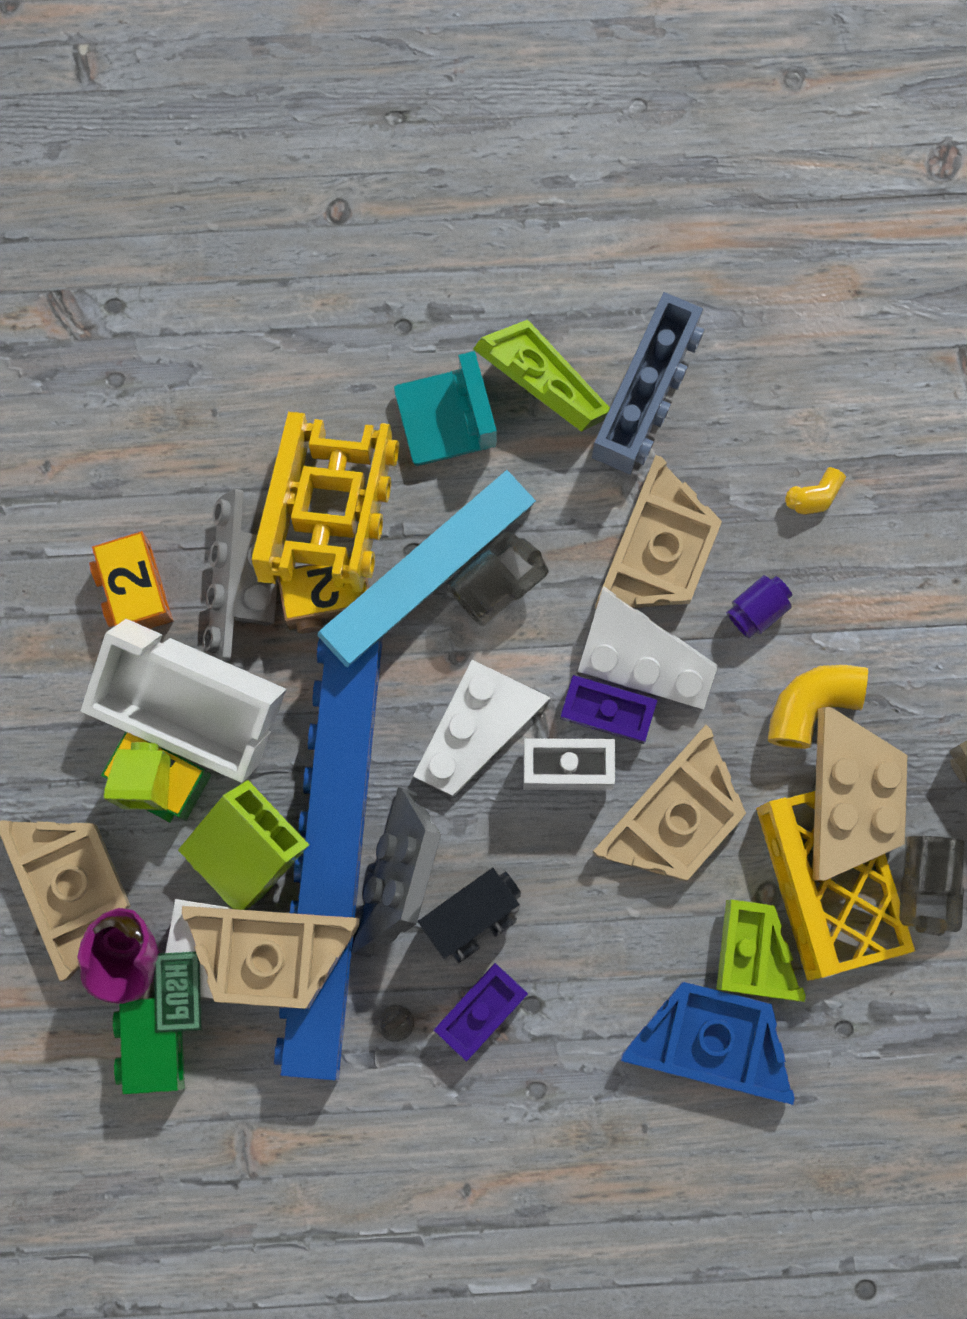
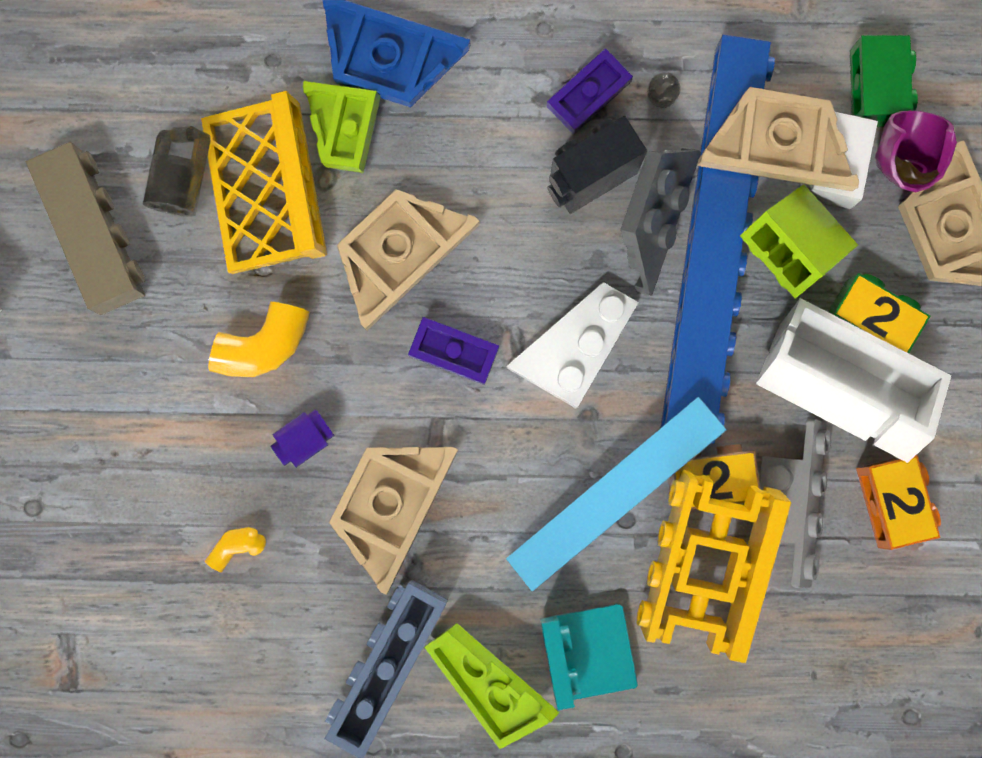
camera: 175 degrees left, 5 degrees up
(139, 778) = (901, 298): lime slope -> none
(177, 992) = (861, 116): clear green sticker -> none
(489, 586) = (561, 475): clear smoke piece -> none
(568, 764) = (495, 297): white brick -> none
(643, 656) = (420, 399): white wing -> none
(856, 796) = (234, 250): tan wing -> none

